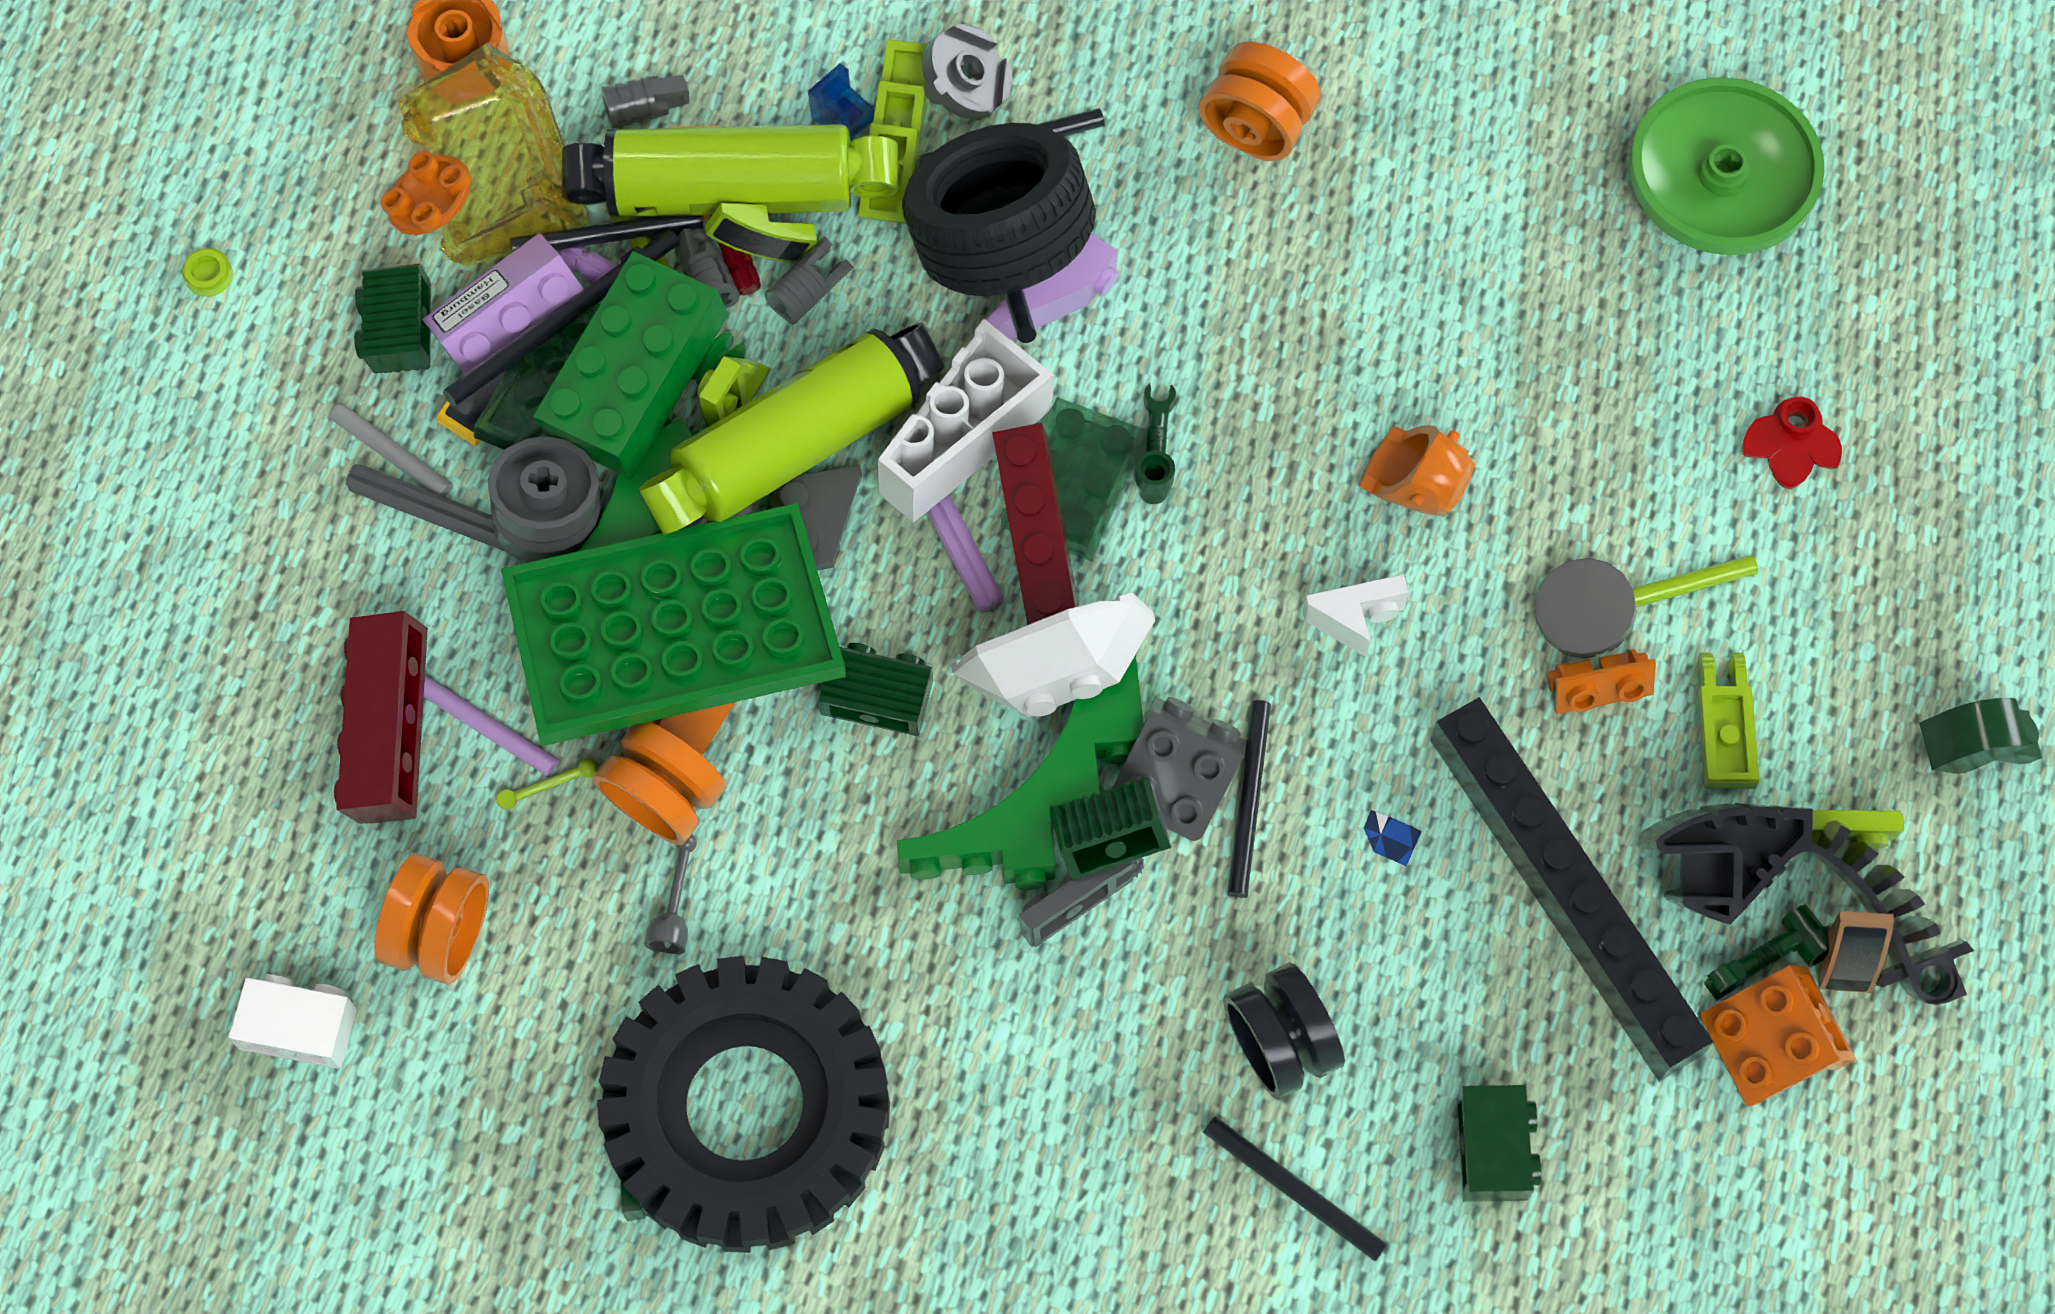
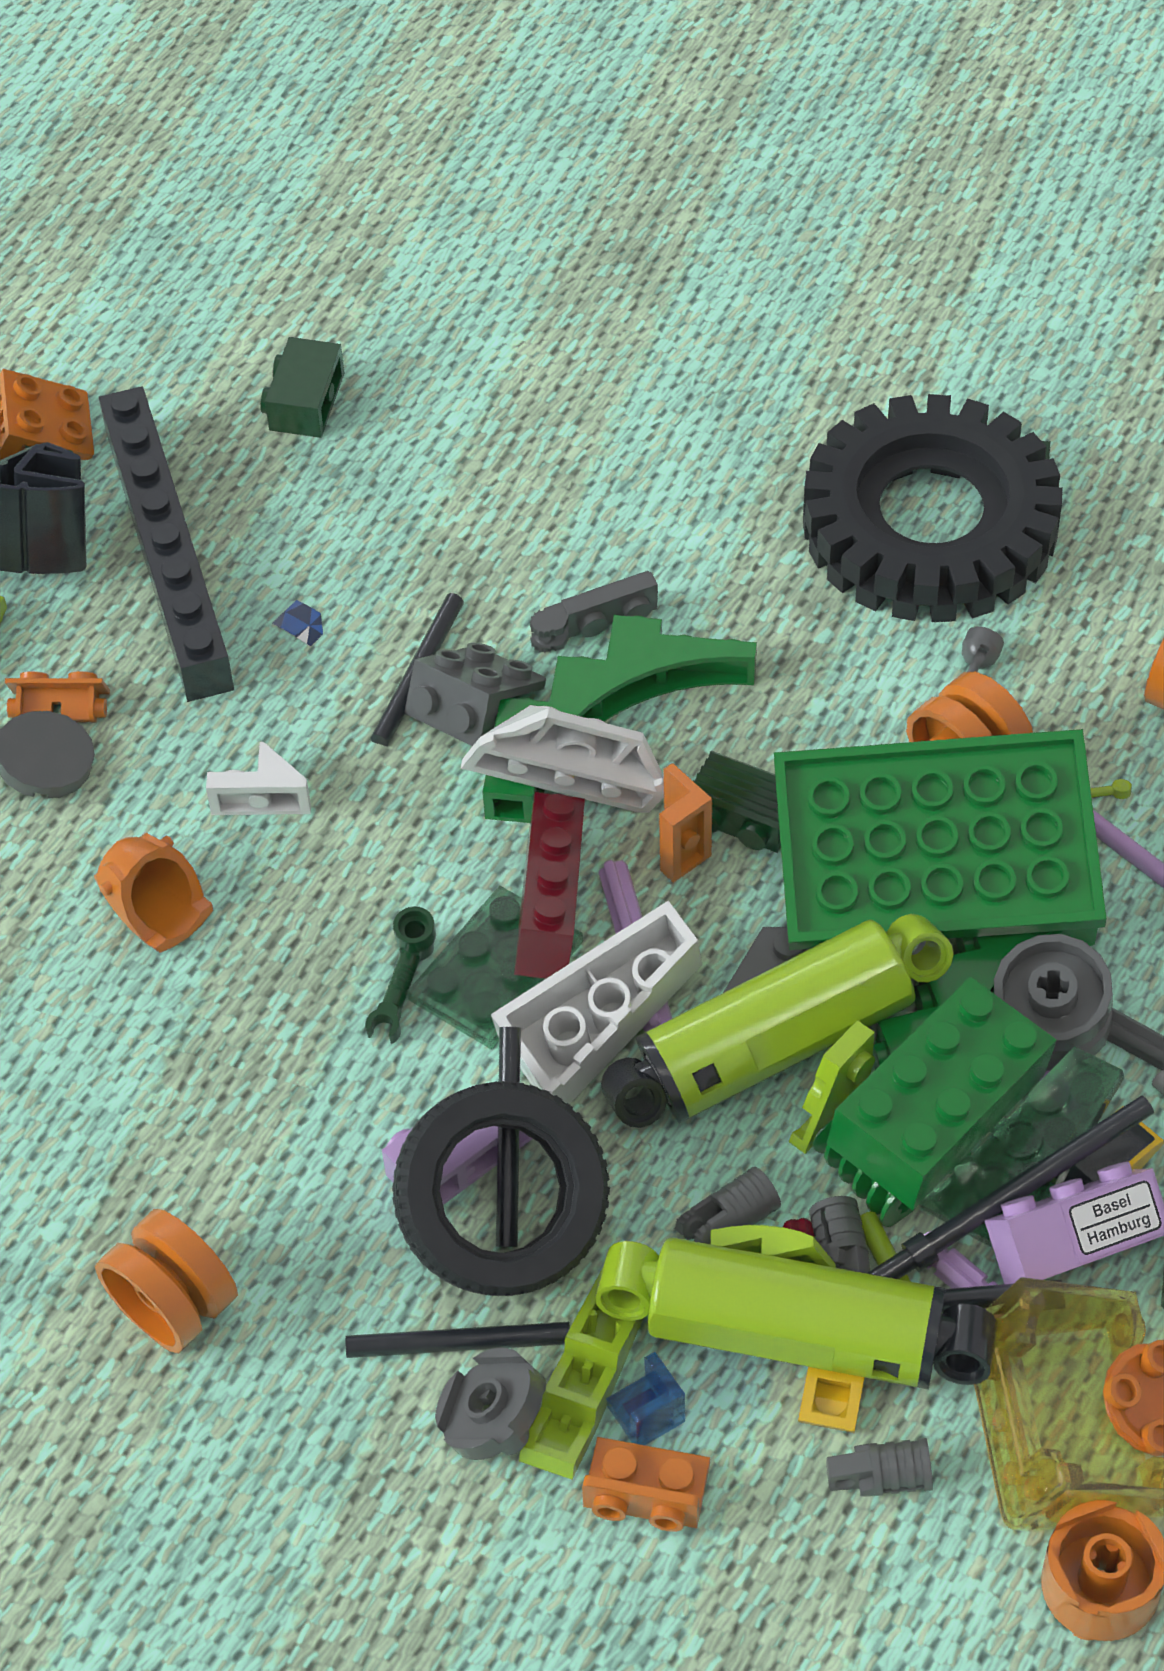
camera: 165 degrees left, 15 degrees down
(820, 43) = (645, 1484): none -> orange bracket
(919, 624) = (683, 825): none -> orange panel
(1110, 828) = (556, 618): dark green brick -> none
(1284, 1030) = (445, 465): black wheel -> none
(1295, 1188) = (479, 398): black bar -> none

